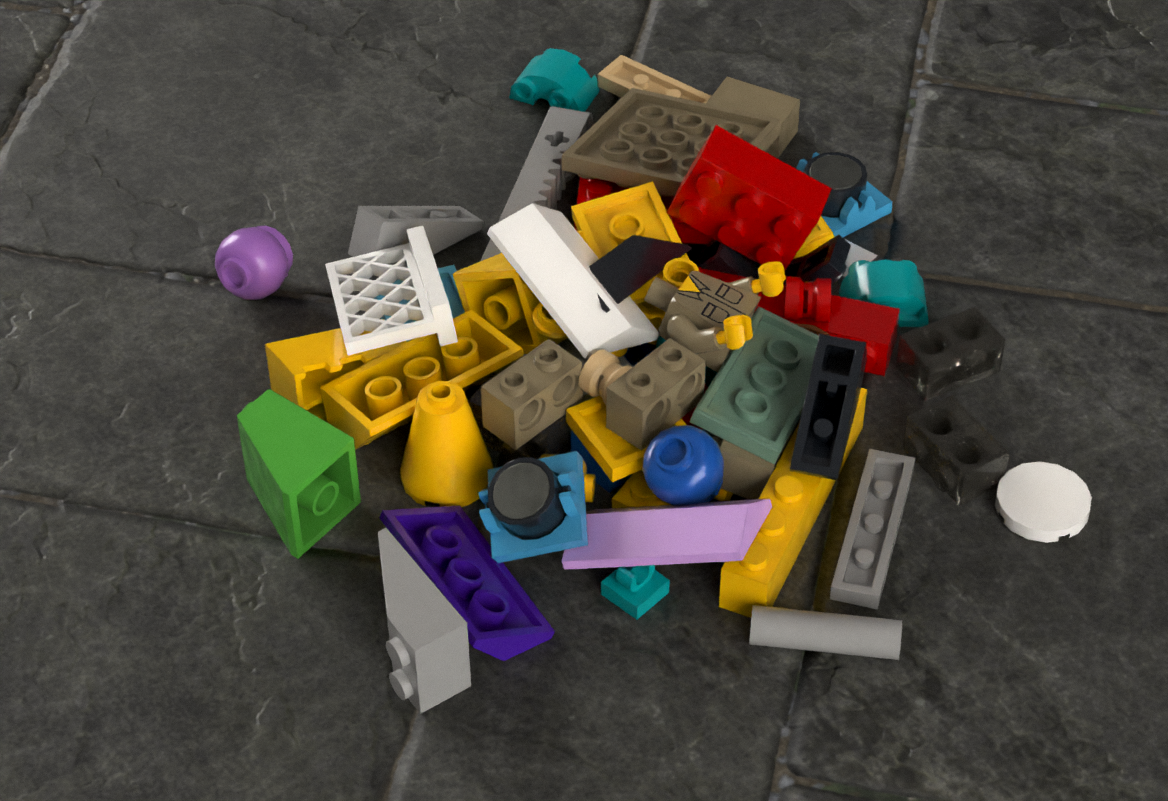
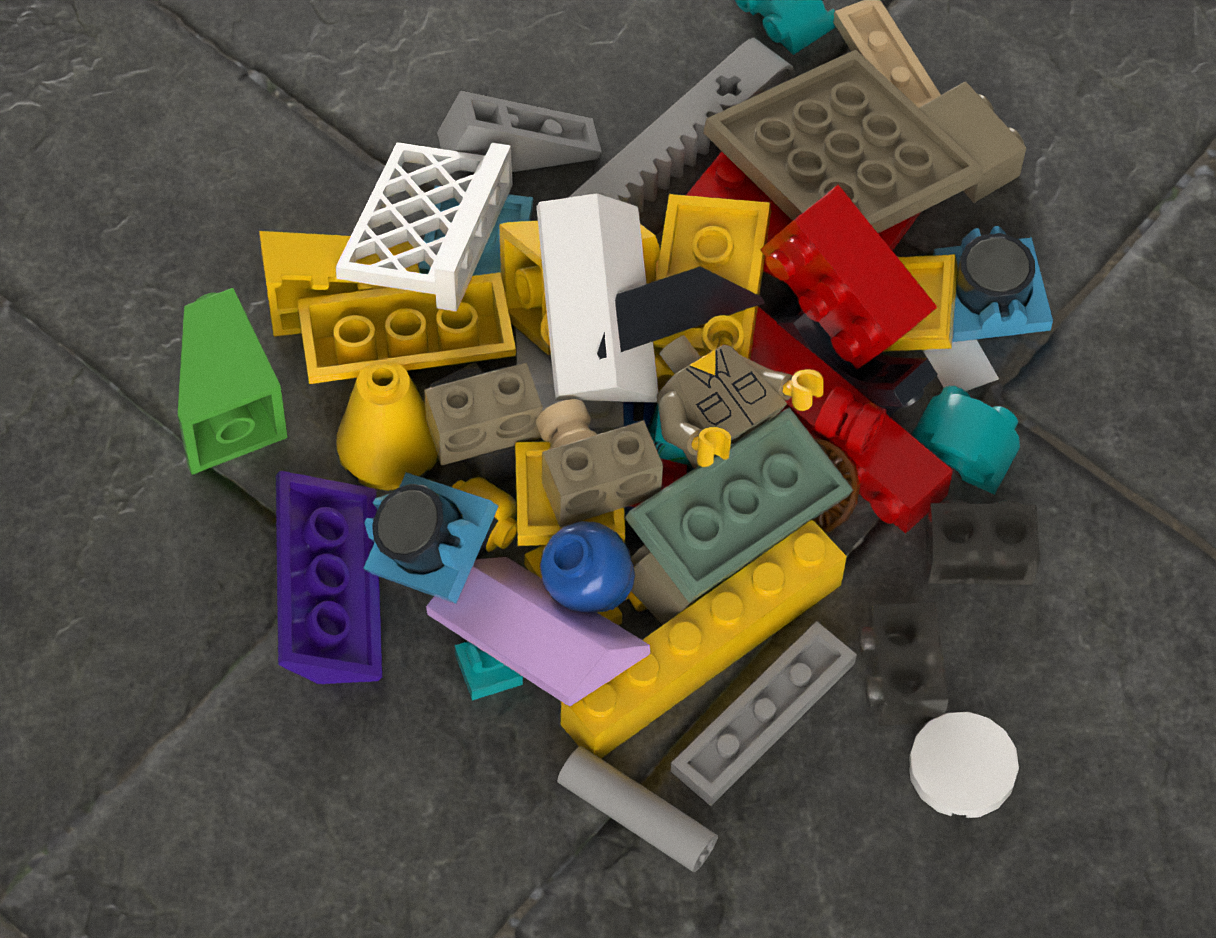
camera: 25 degrees right, 15 degrees up
(253, 262) = (329, 106): medium lavender piece -> none
(424, 631) = (230, 628): light grey slope -> none
(829, 406) = (772, 570): black slope -> none

